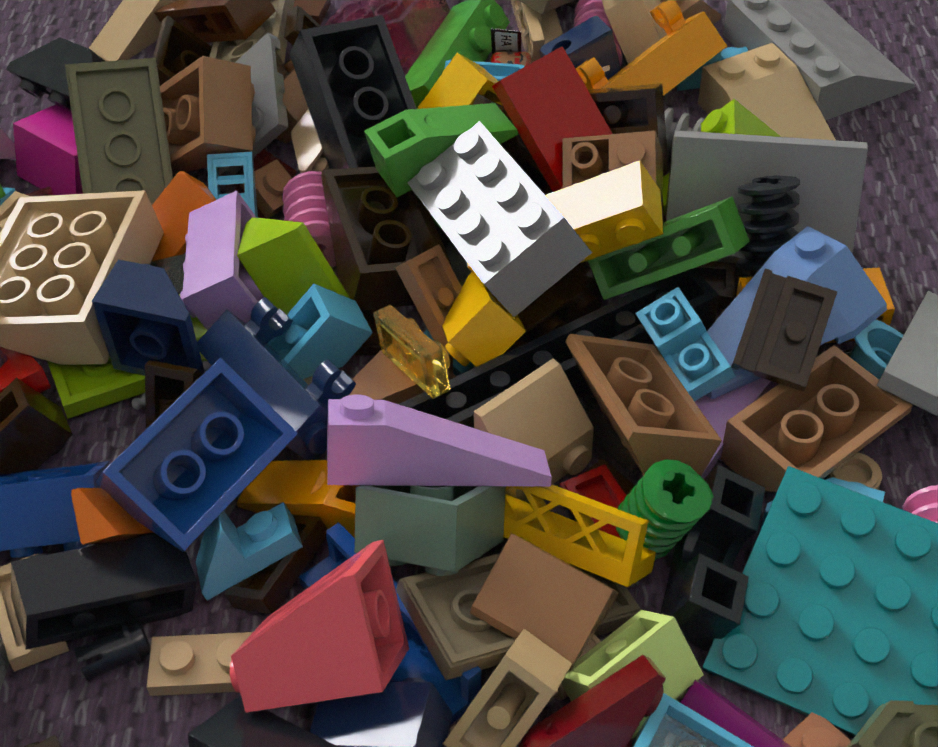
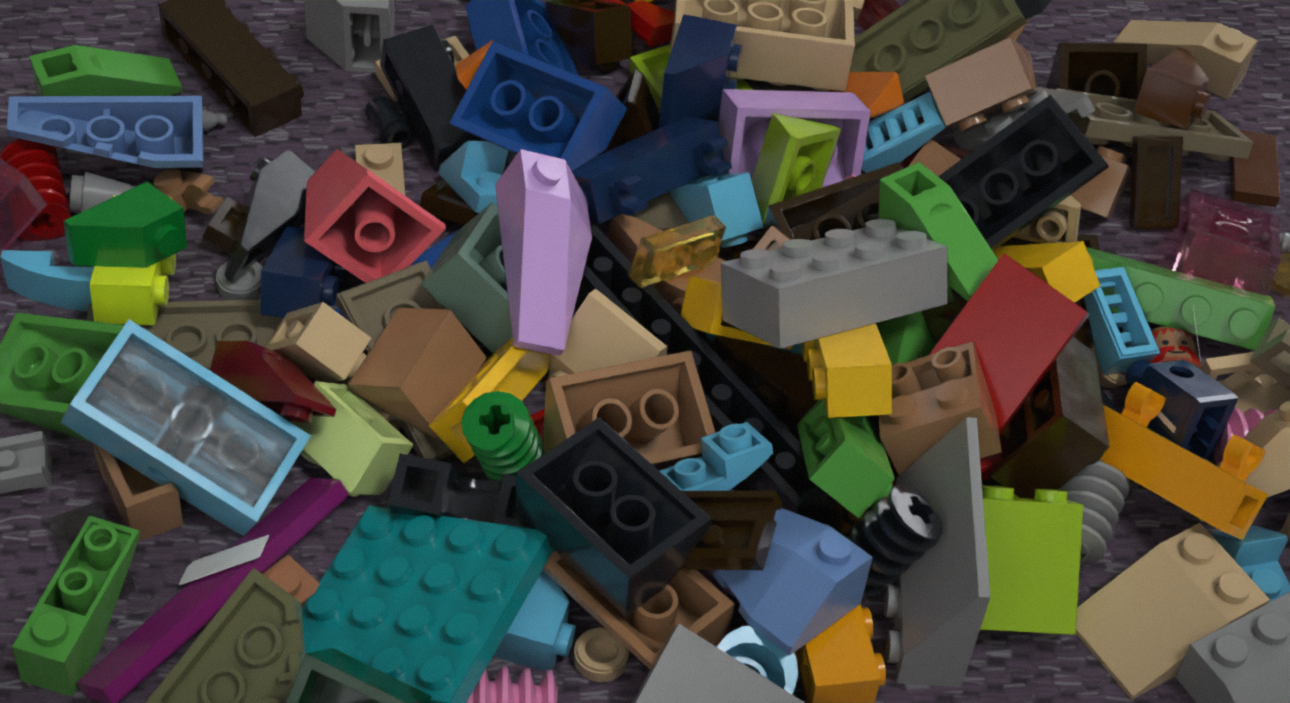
camera: 80 degrees right, 0 degrees up
(783, 403) = (610, 514): none -> black slope

